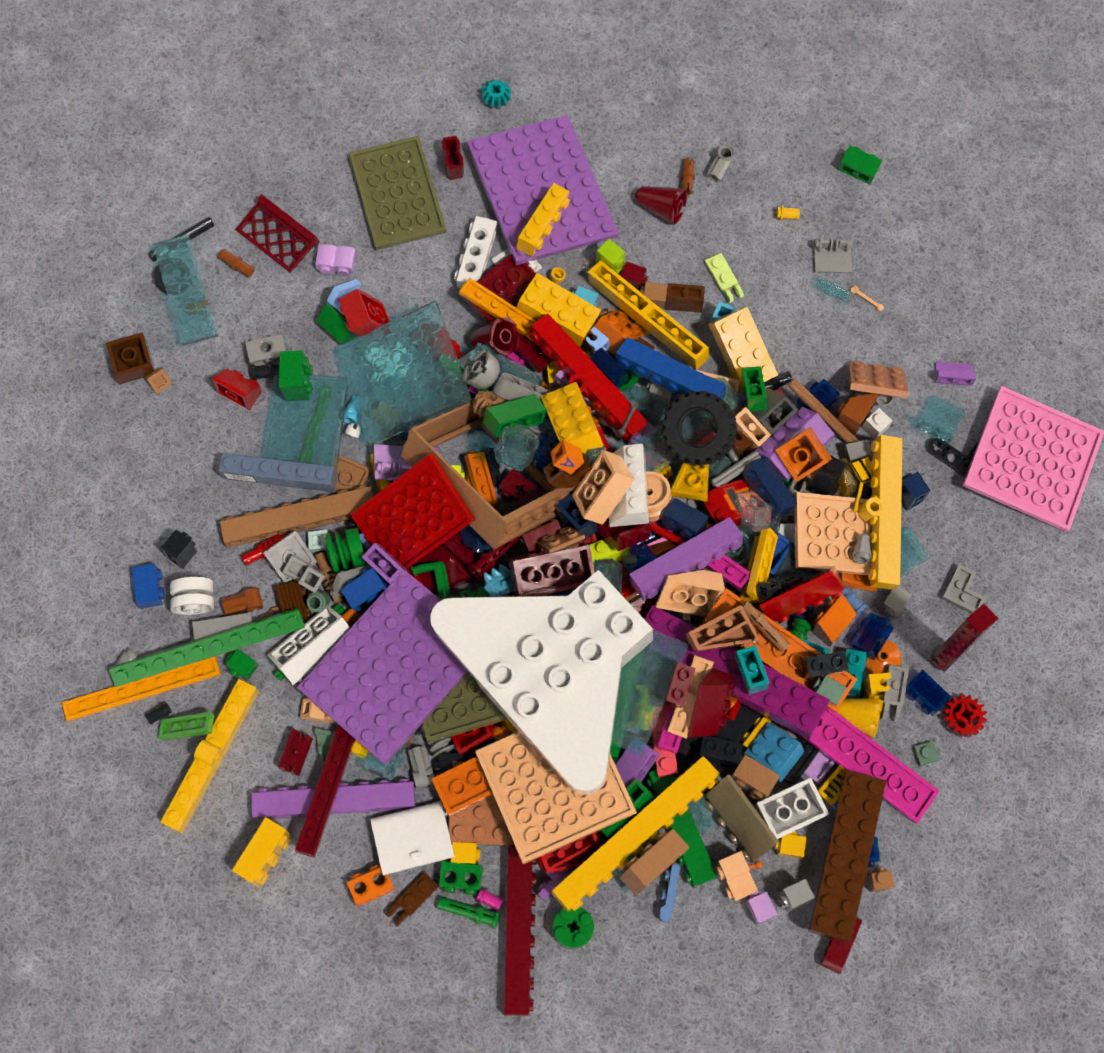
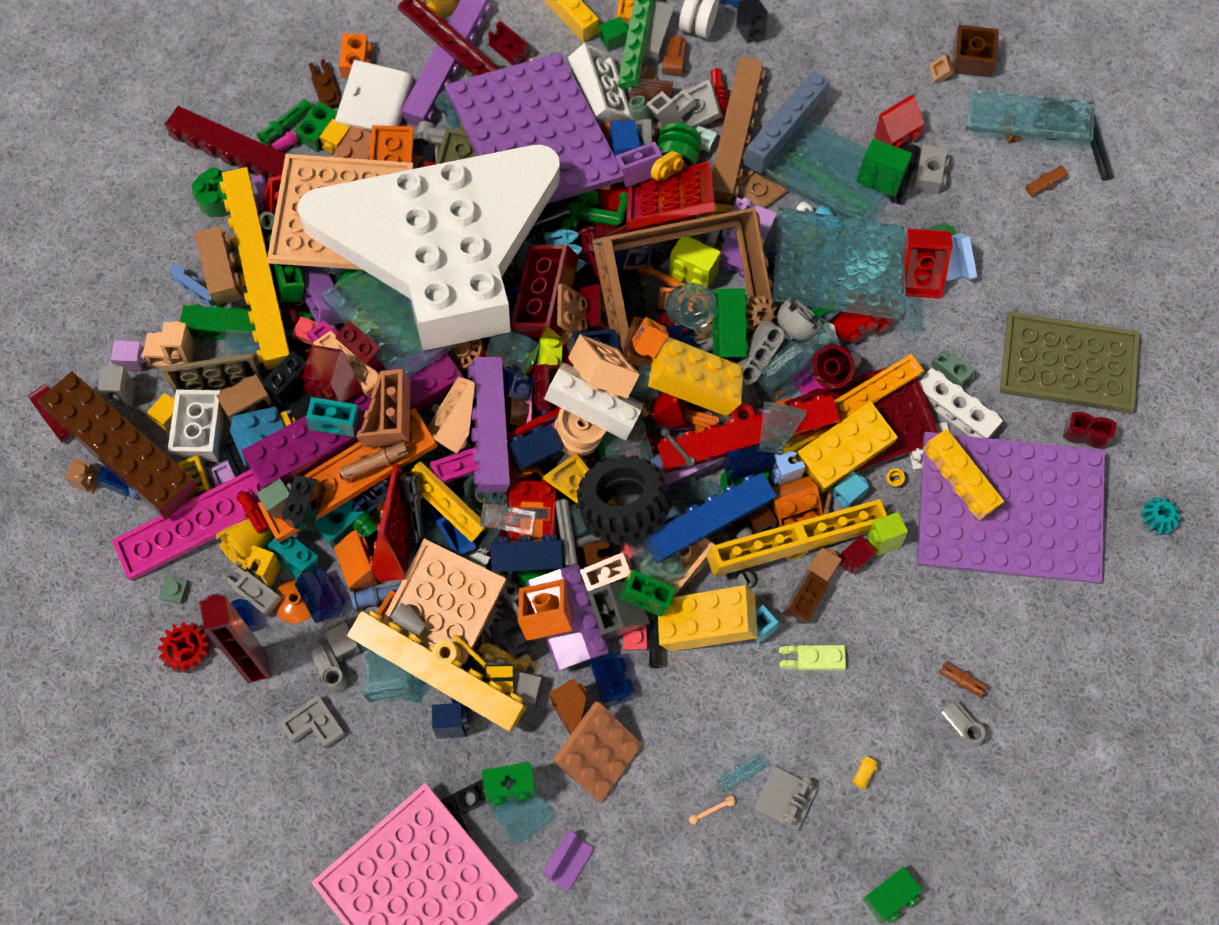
camera: 120 degrees right, 5 degrees down
(283, 220) = (1074, 242): dark red fence -> none
(335, 259) = (1010, 270): lavender brick -> none
(384, 539) = (667, 166): none -> yellow plate
(445, 268) = (953, 368): none -> sand green leg
(579, 350) = (778, 426): none -> clear light blue slope
(590, 843) = (271, 216): none -> sand green hinge
(658, 782) = (295, 317): none -> dark red hinge
(663, 201) = (937, 630): dark red cone -> none
(817, 407) = (593, 665): medium nougat axle -> none
(843, 713) = (252, 512): none -> red axle
(877, 423) = (549, 730): white brick -> none
(919, 601) = (329, 668): none -> light grey piece
(938, 430) = (496, 780): none -> green brick

